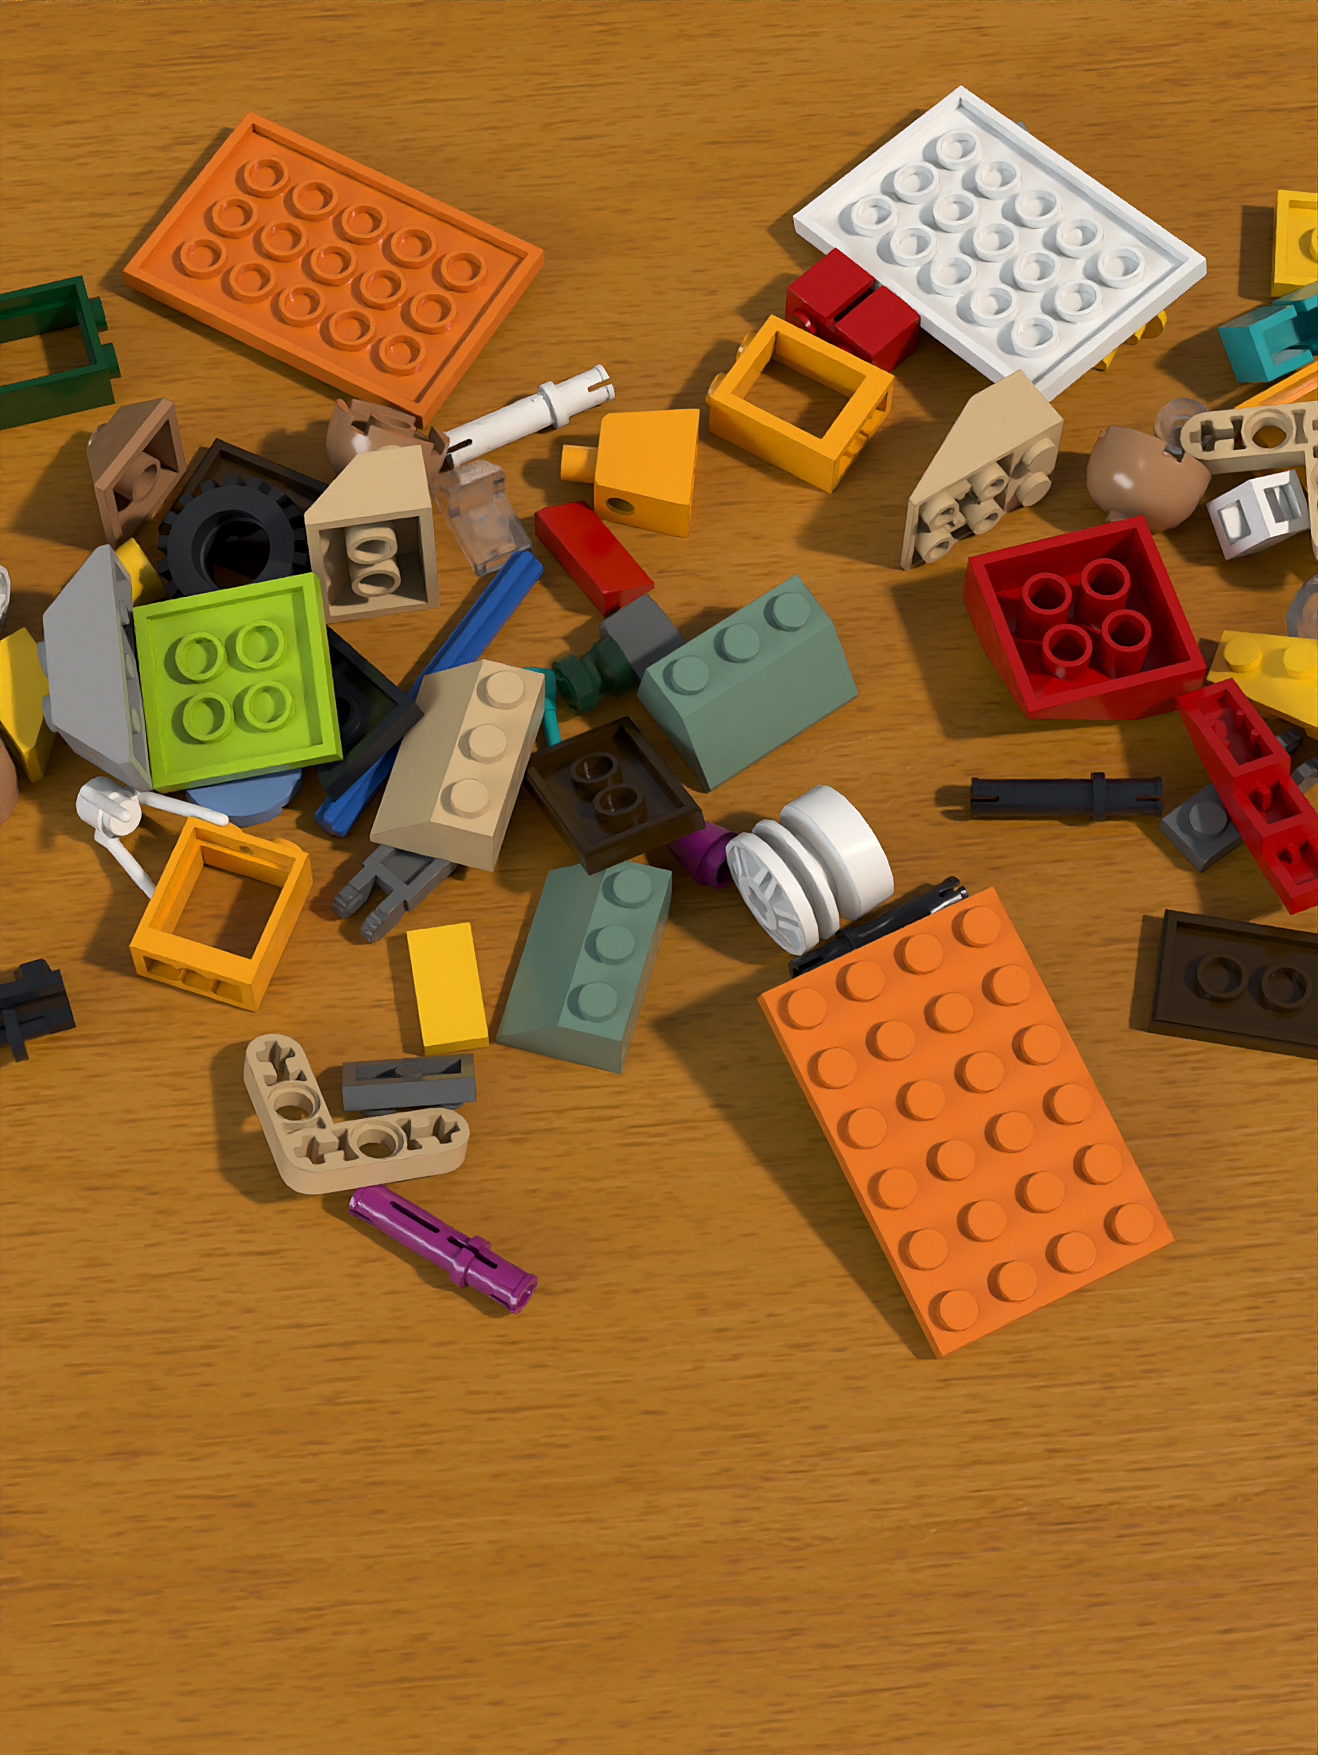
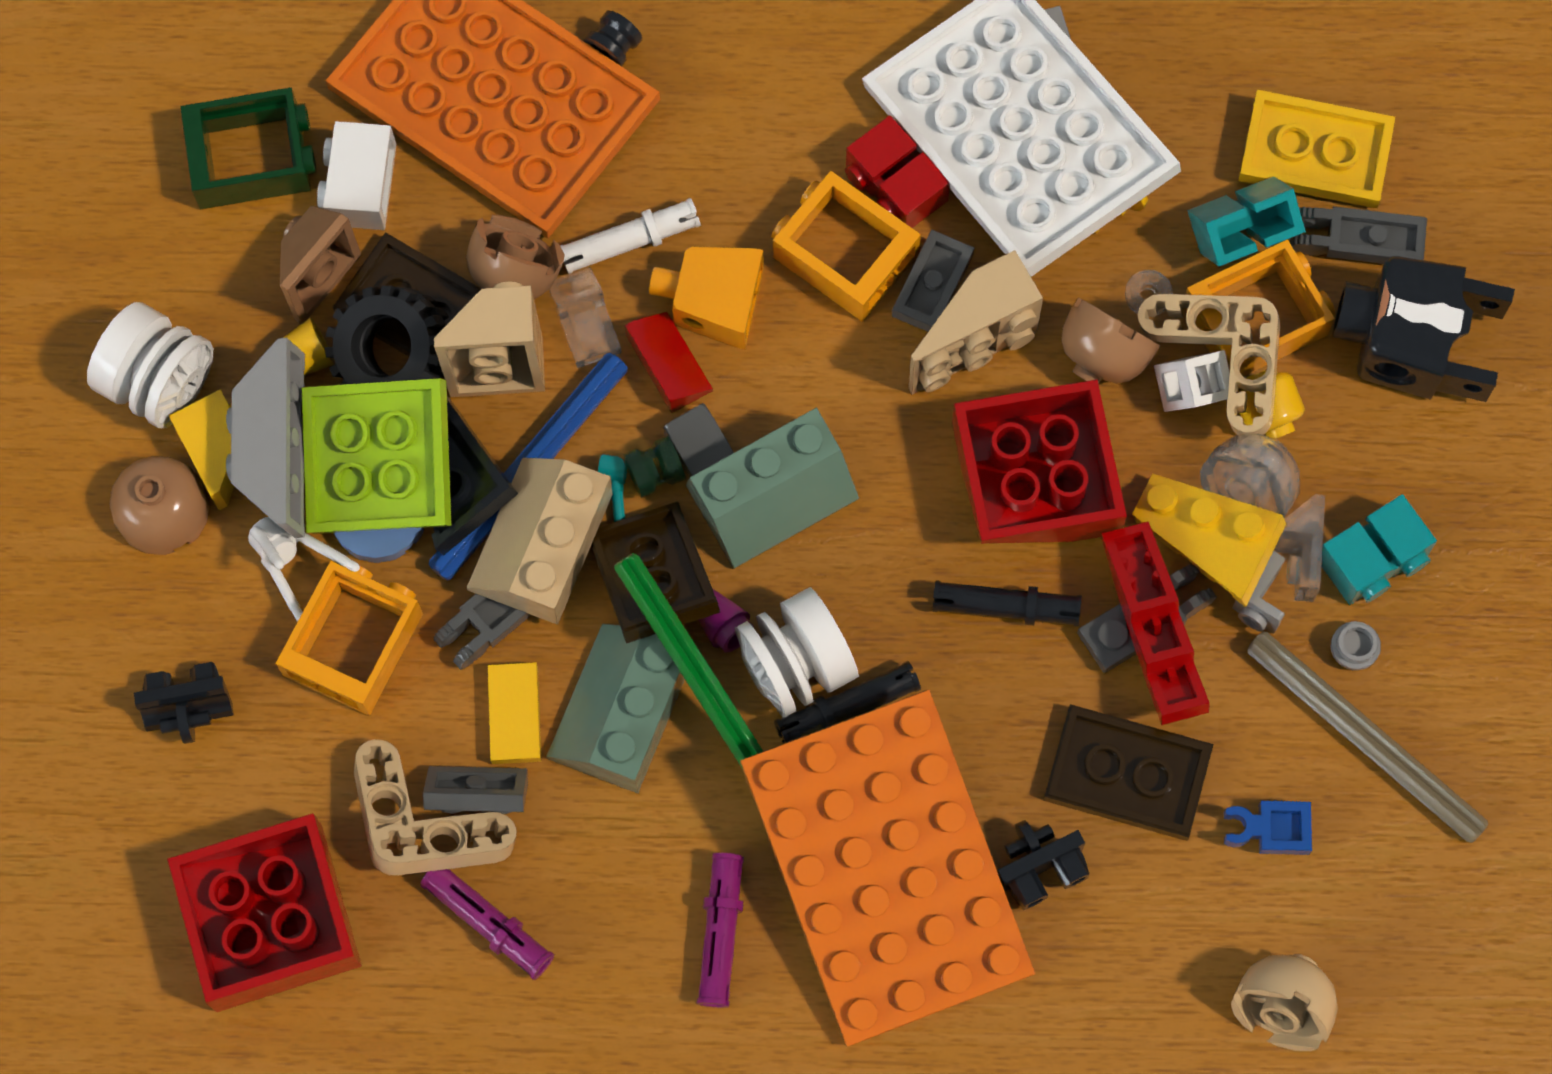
camera: 10 degrees right, 10 degrees up
(145, 1259) = (264, 913): none -> red slope
(178, 362) = (358, 173): none -> white brick
(481, 192) = (614, 37): none -> black wheel
(674, 887) = (687, 657): none -> green axle
(753, 1200) = (719, 940): none -> magenta pin
(913, 433) = (932, 280): none -> dark grey plate
(1157, 1096) = (1062, 855): none -> black hips

